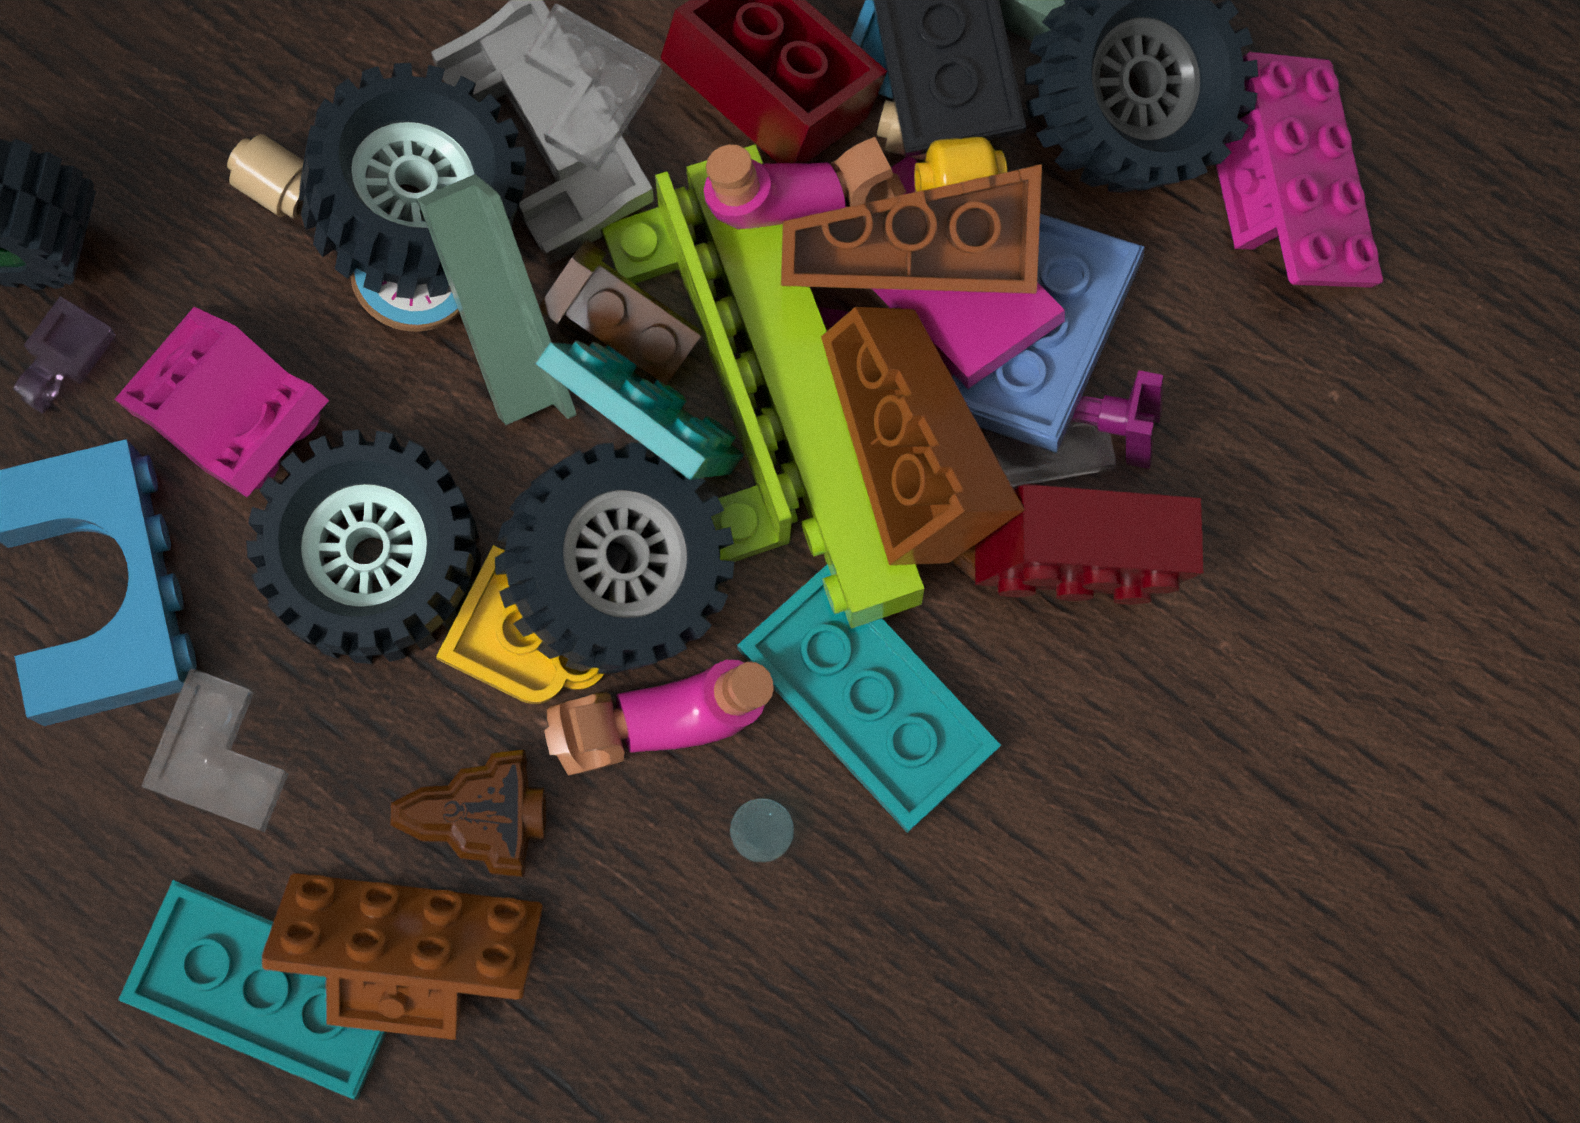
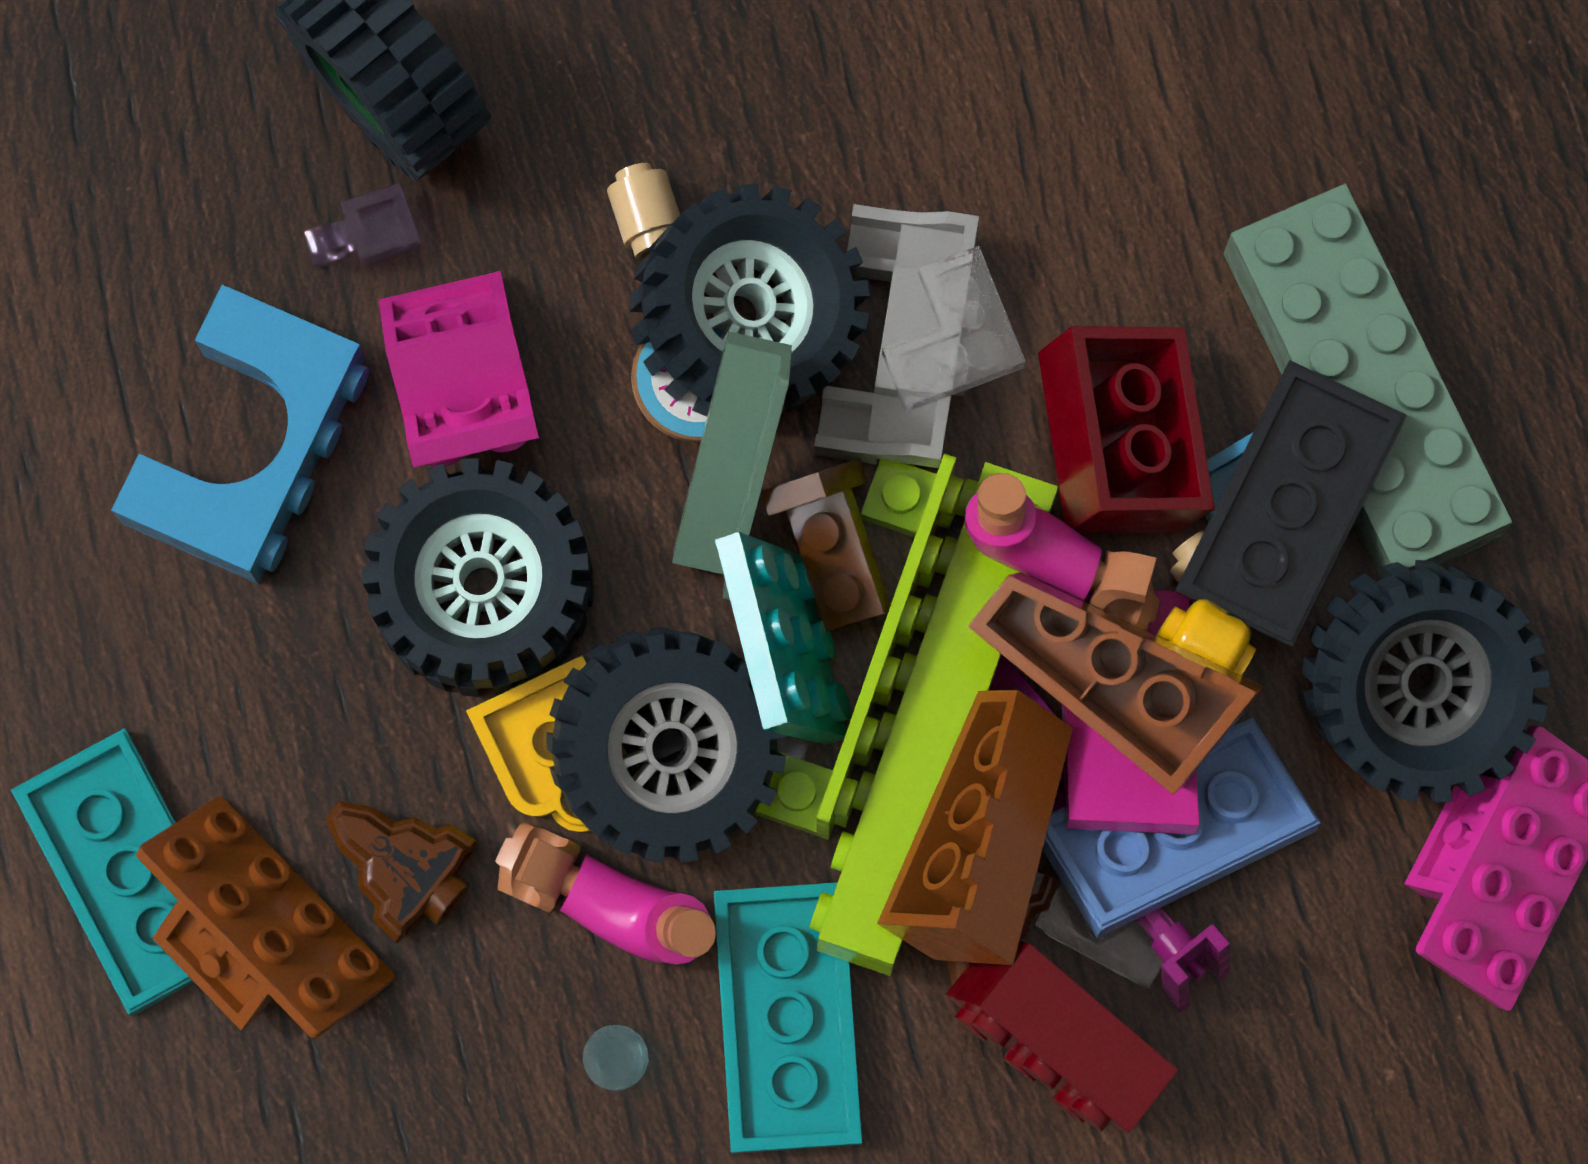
camera: 45 degrees right, 0 degrees up
(197, 759) = (214, 651): clear plate -> none

